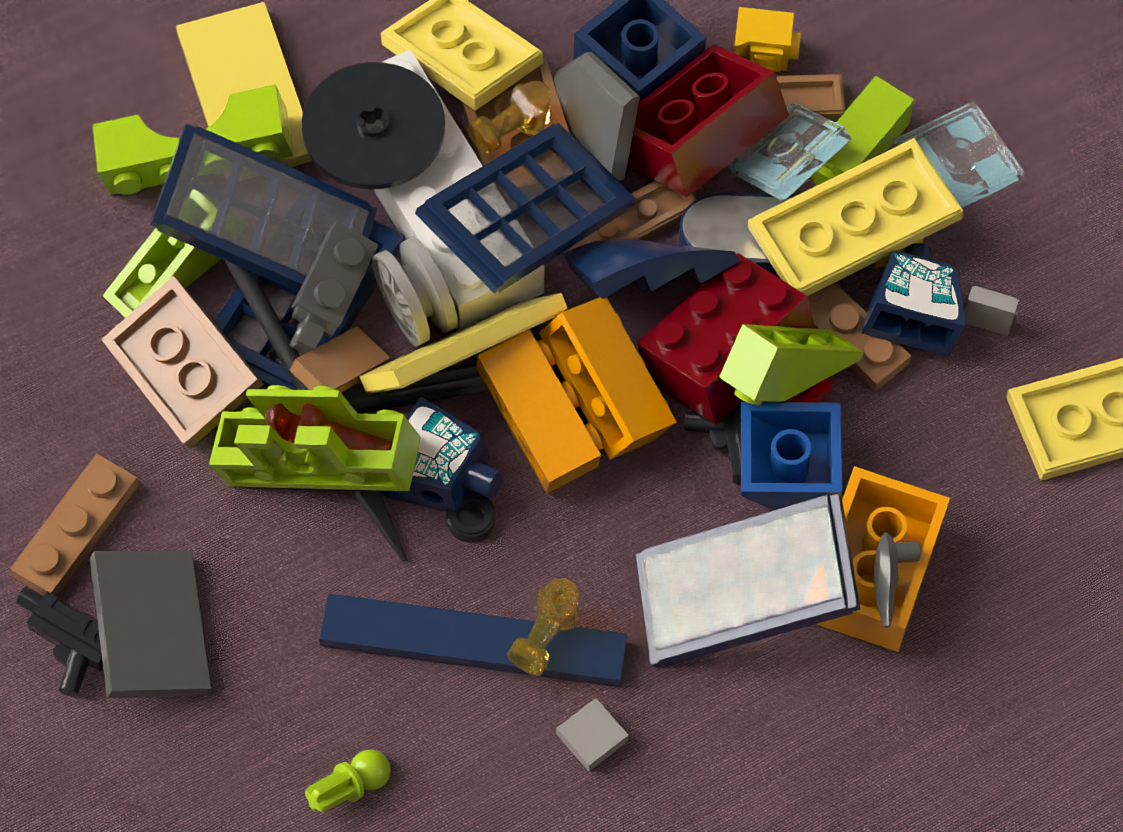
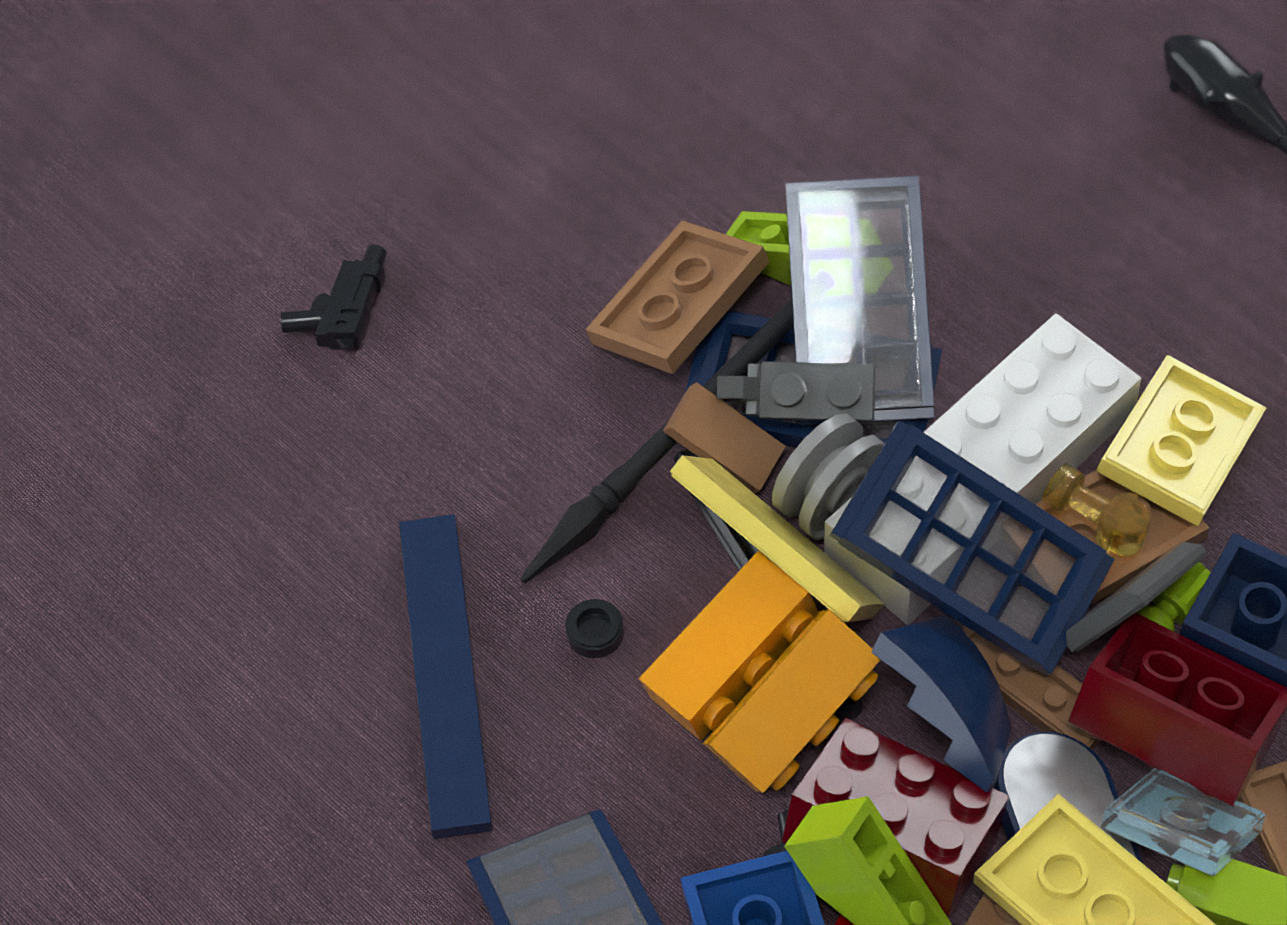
camera: 80 degrees right, 5 degrees down
(74, 526) = (468, 271): medium nougat plate -> none
(138, 158) = (973, 261): lime arch -> none
(149, 624) = (370, 363): dark grey tile -> none
(236, 55) = (1041, 259): light yellow tile -> none
(313, 443) = (597, 422): lime piece -> none
(348, 781) = (266, 616): lime axle -> none
(379, 157) = (1053, 373): black piece -> none
(448, 461) = (641, 566): dark blue torso -> none
(555, 611) = (487, 729): clear yellow leg -> none
(592, 734) = (362, 822): light grey tile -> none

